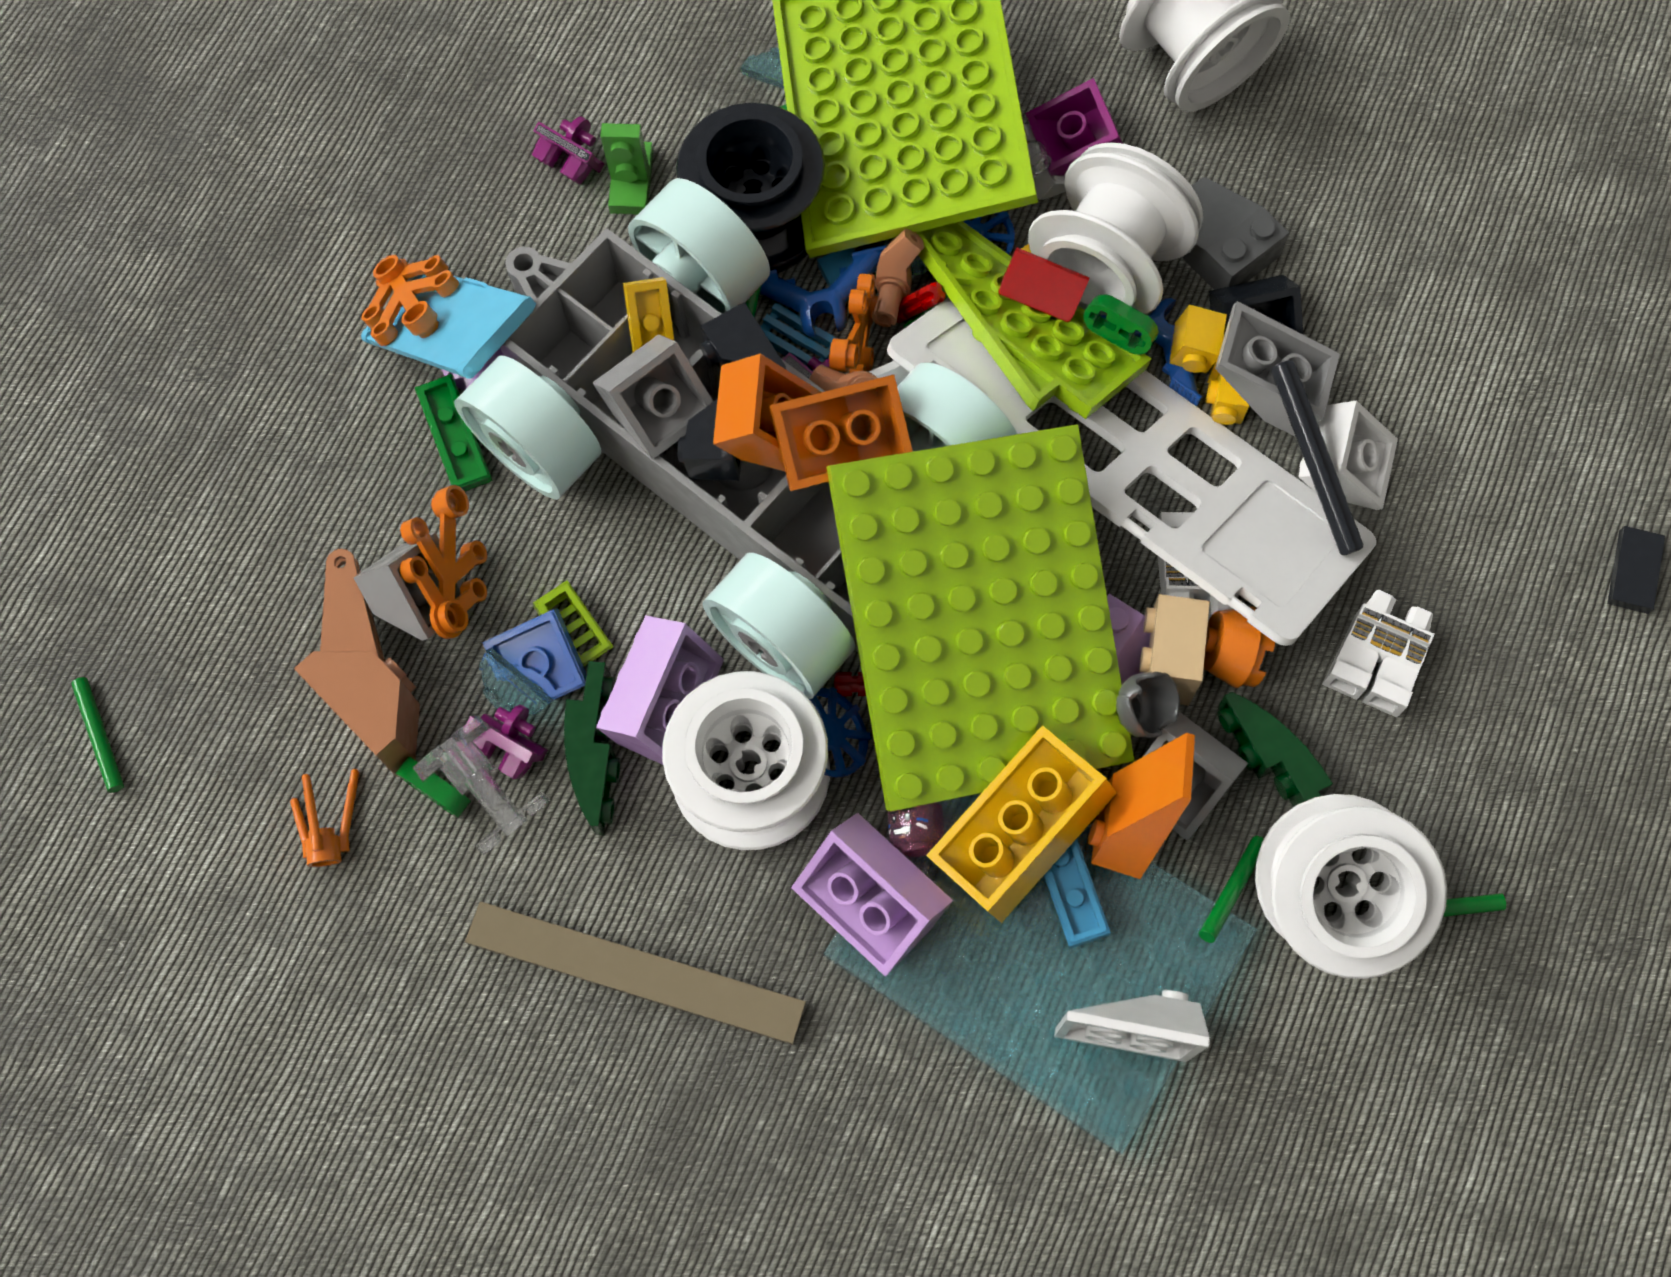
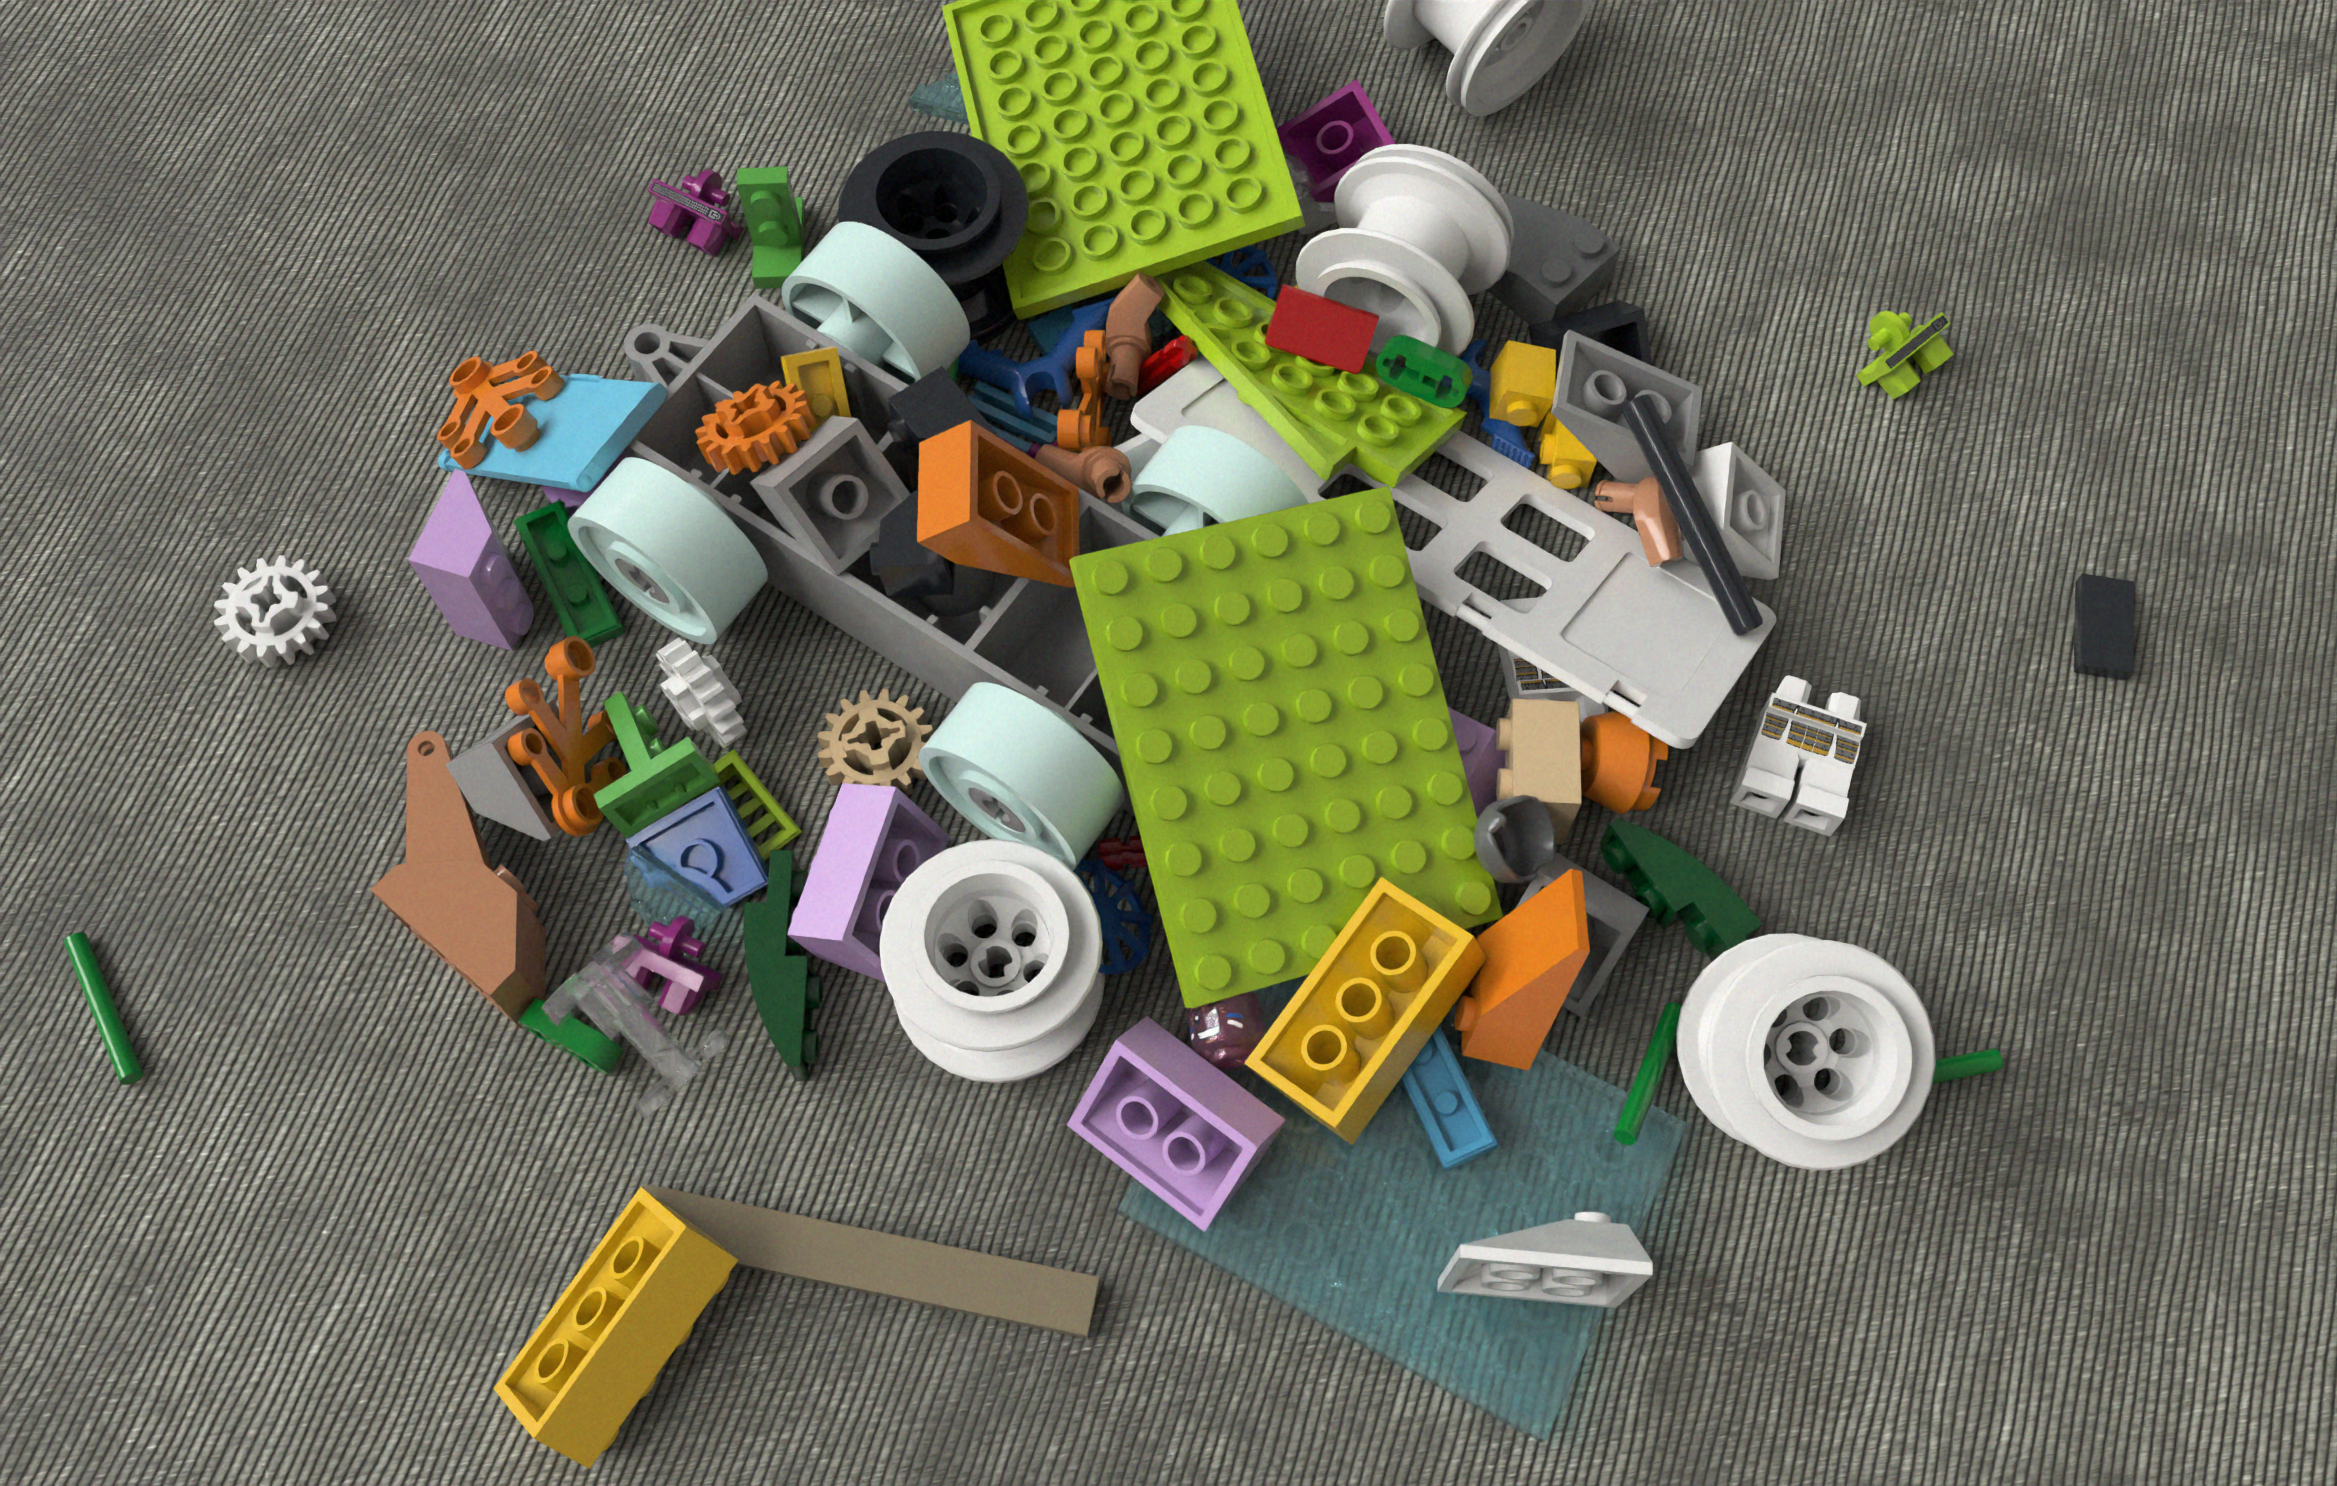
camera: 10 degrees left, 5 degrees down
(235, 444) = (275, 611): none -> white gear
(321, 845) = (421, 1127): orange plant -> none
(382, 426) = (471, 569): none -> lavender slope
(451, 1005) = (614, 1329): none -> yellow slope
(510, 597) = (658, 776): none -> bright green bracket
(545, 535) = (701, 692): none -> white gear
(600, 339) = (755, 427): none -> orange gear
(659, 586) = (852, 751): none -> tan gear
(839, 428) = (1080, 509): orange slope -> none
(1286, 454) = (1652, 516): none -> nougat arm
(1495, 344) = (1922, 343): none -> lime hips

